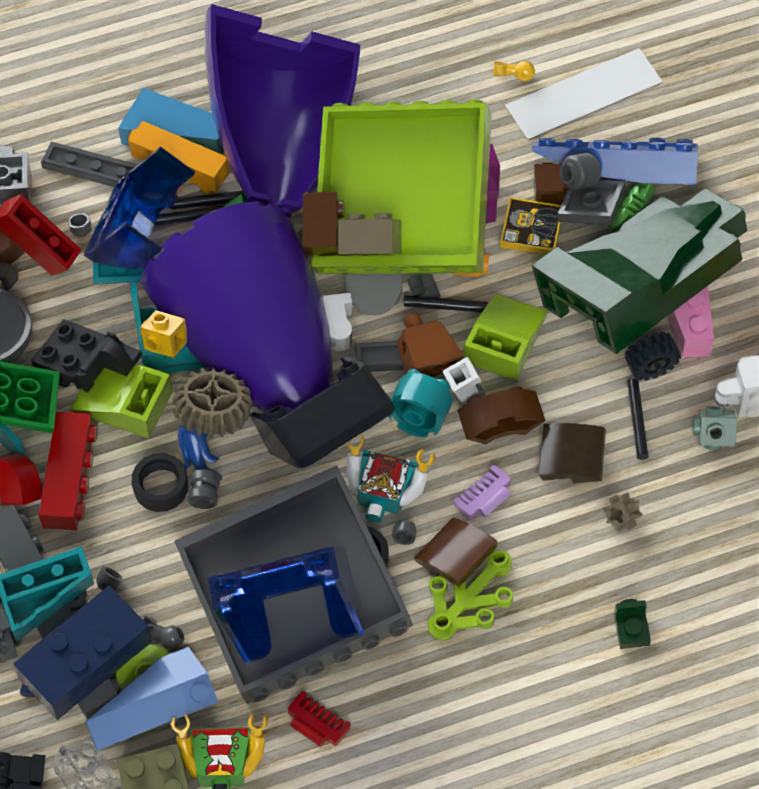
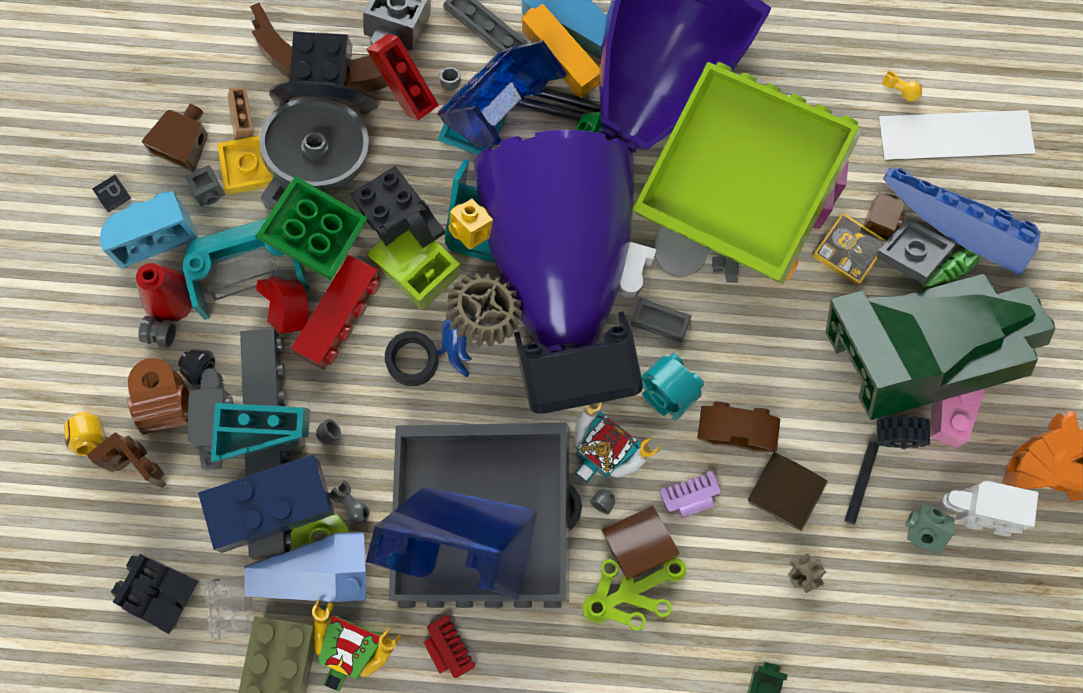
camera: 20 degrees right, 15 degrees up
(203, 490) = (446, 382): dark grey wheel -> none
(320, 222) = (657, 176): reddish brown brick -> none
(369, 236) = (694, 209): dark tan brick -> none
(427, 347) = (700, 333): dark orange torso -> none
(445, 304) = (738, 293): black bar -> none
(464, 380) = (718, 384): white leg -> none
(504, 336) = (777, 349): lime slope -> none
(580, 171) = (918, 219): dark grey head -> none

